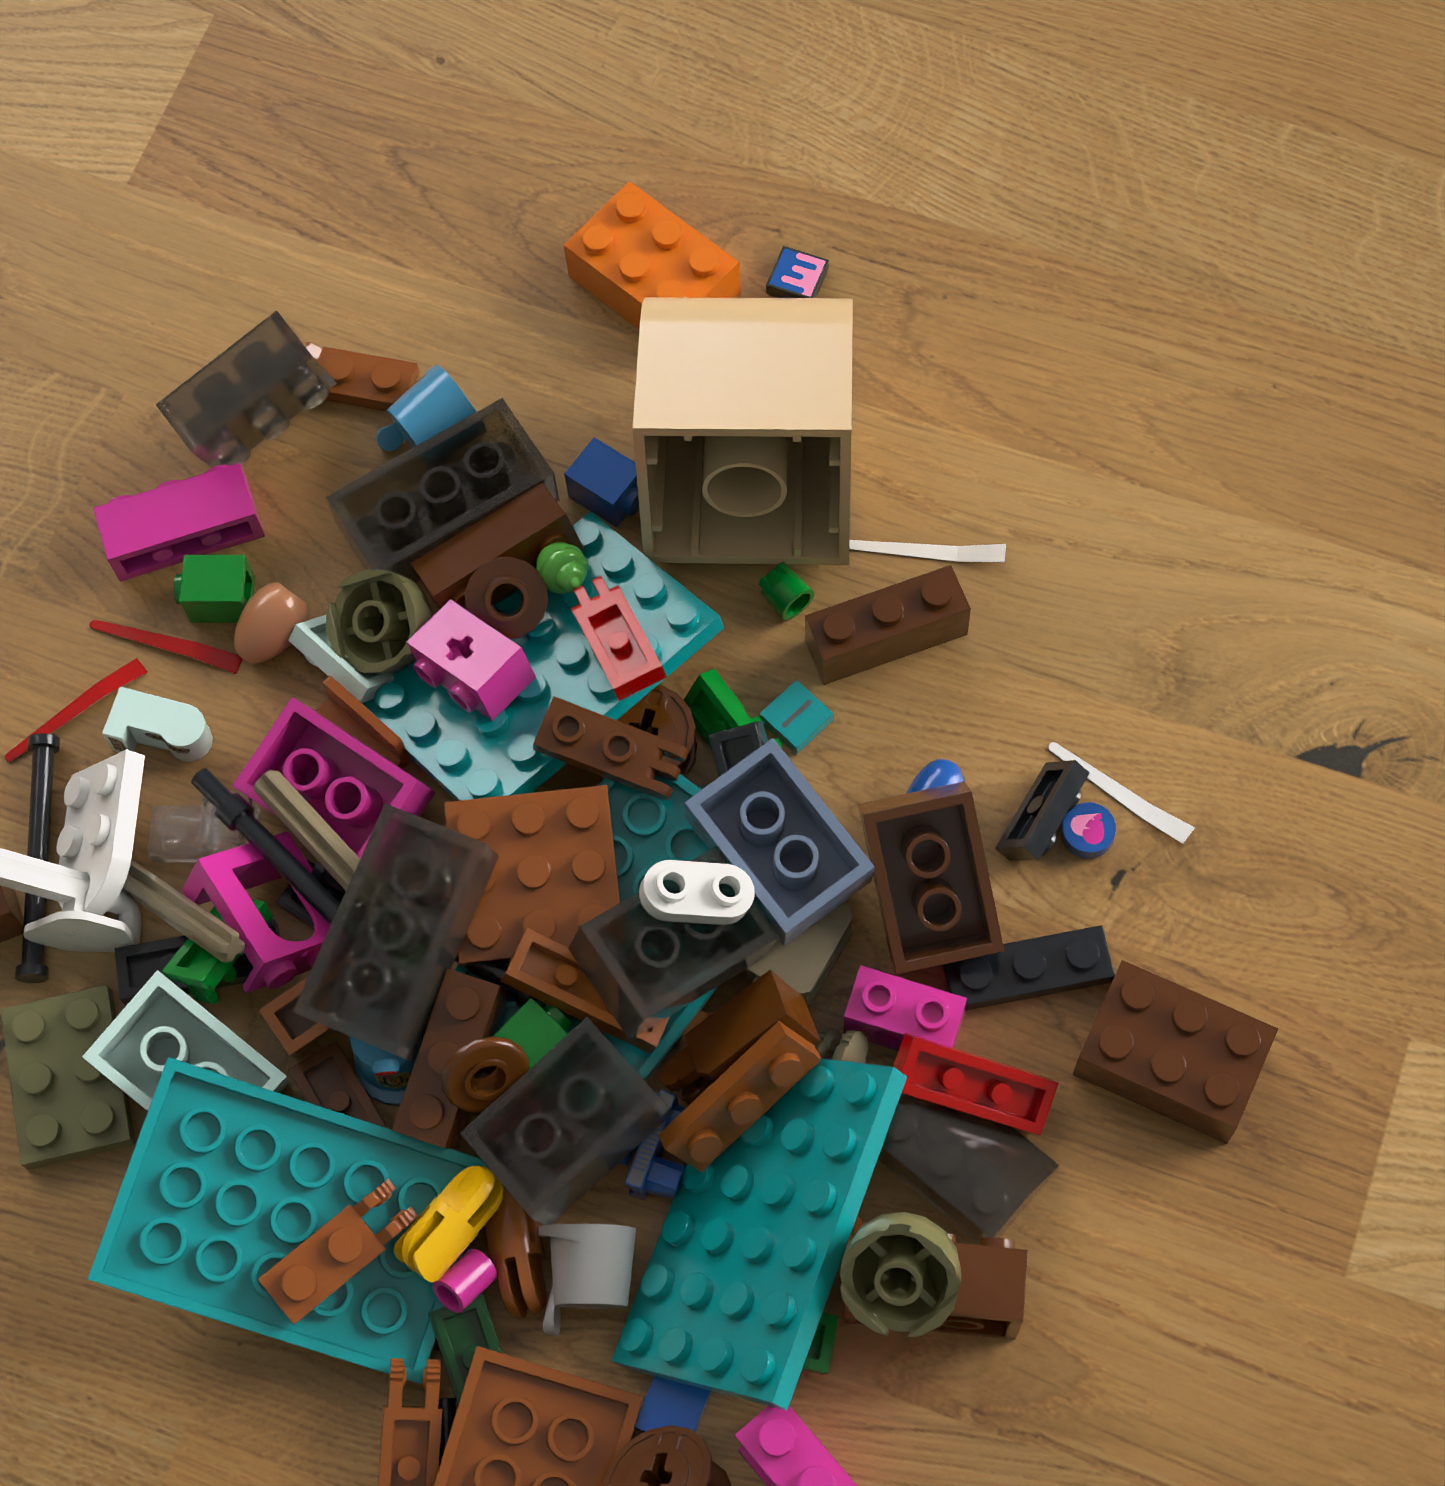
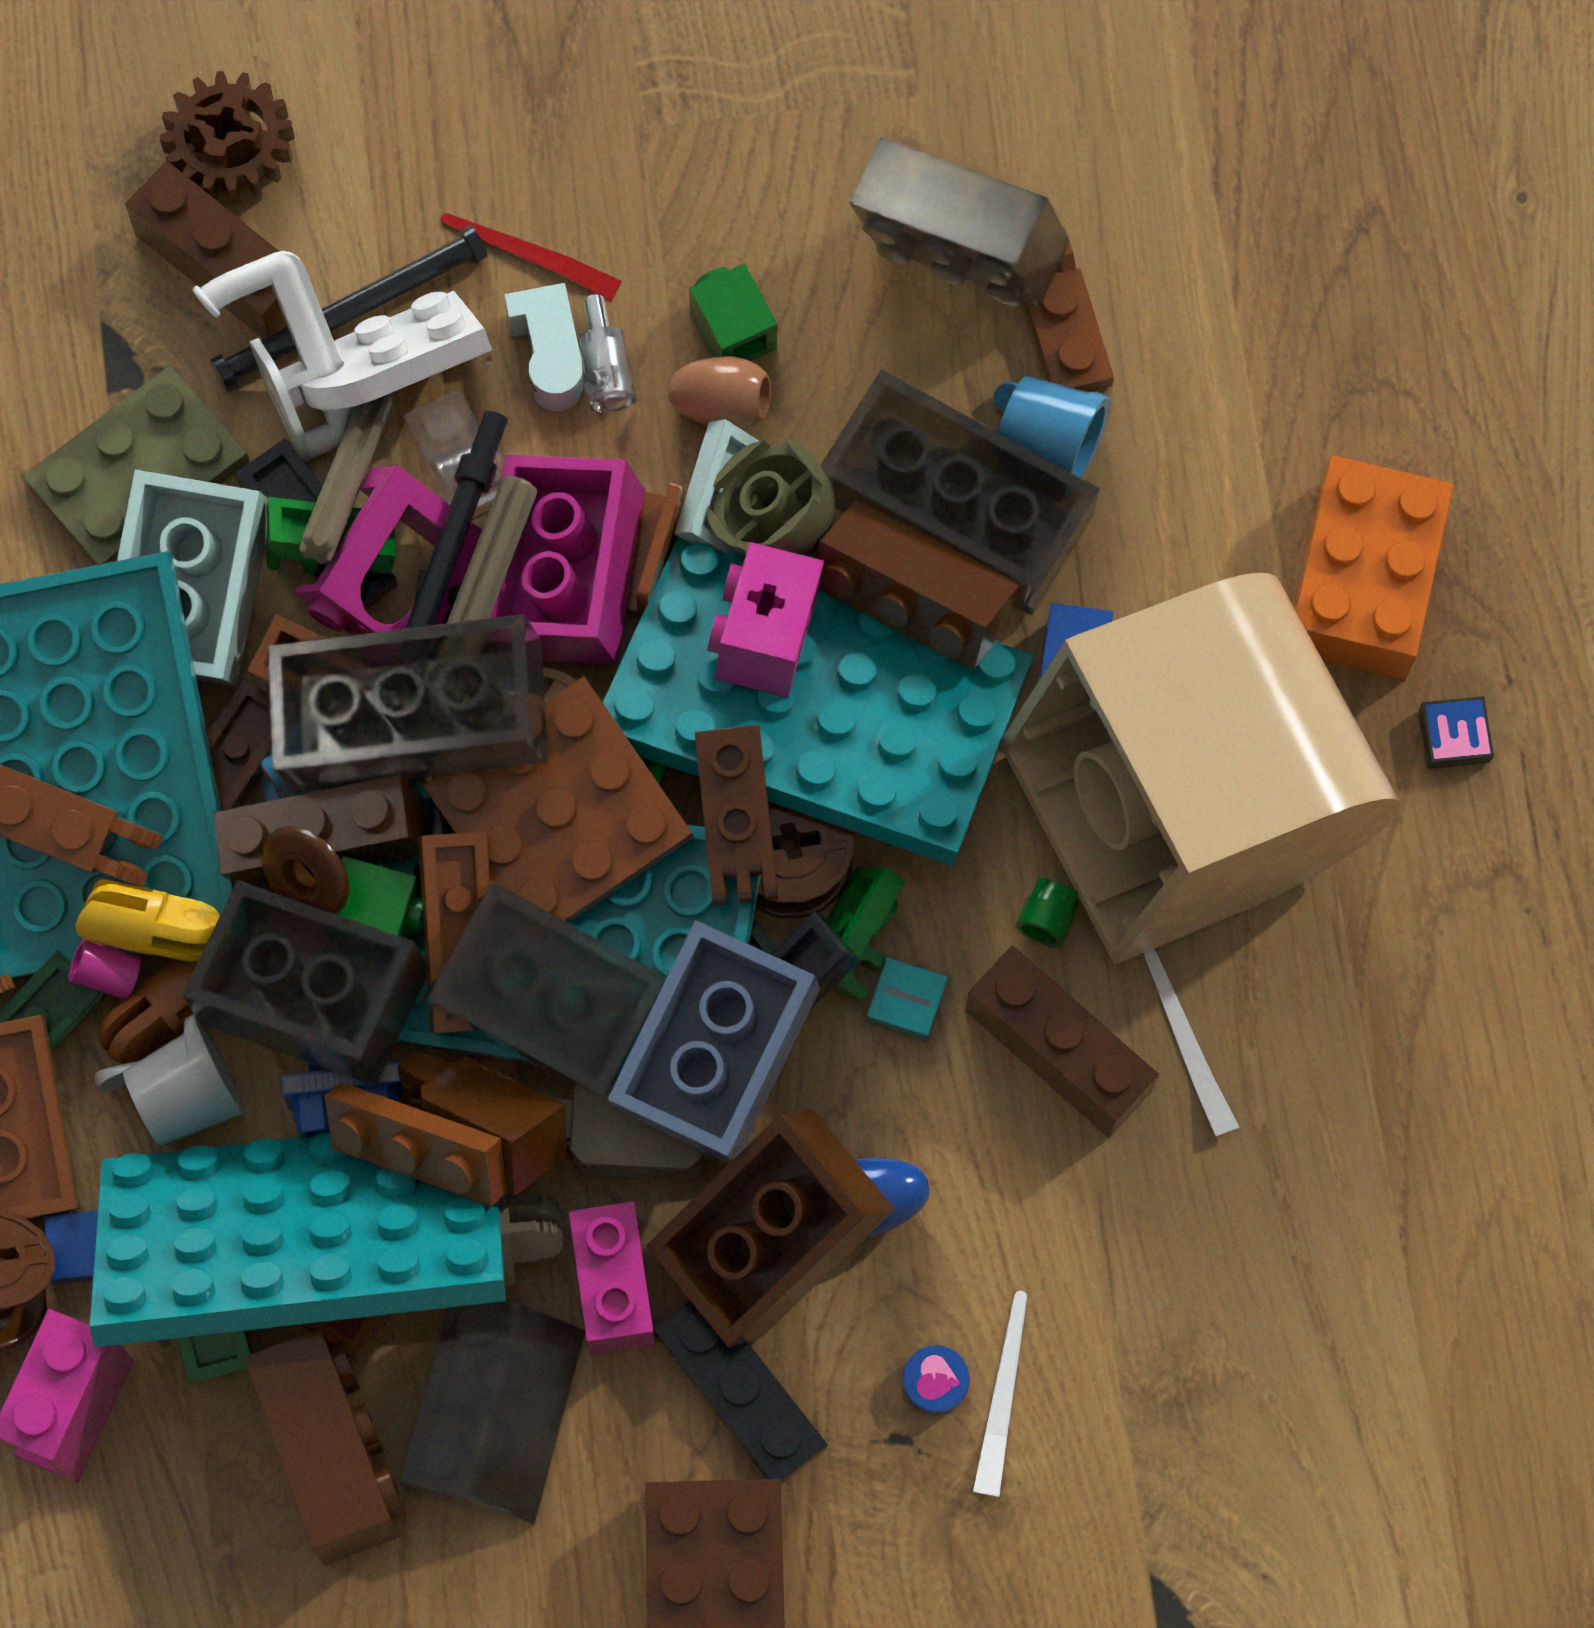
camera: 55 degrees right, 5 degrees up
(178, 520) = (790, 235): dark pink brick -> none
(207, 654) = (658, 336): red sticker -> none
(210, 696) = (605, 360): none -> clear piece
(514, 572) = (887, 614): reddish brown piece -> none
(562, 567) = (927, 657): bright green plate -> none
(617, 639) = (864, 756): hinge -> none
(699, 892) = (595, 984): white plate -> none
(900, 1274) = (283, 1392): olive cylinder -> none
(975, 1084) = (563, 1384): red plate -> none
(1042, 811) = (906, 1316): black plate -> none

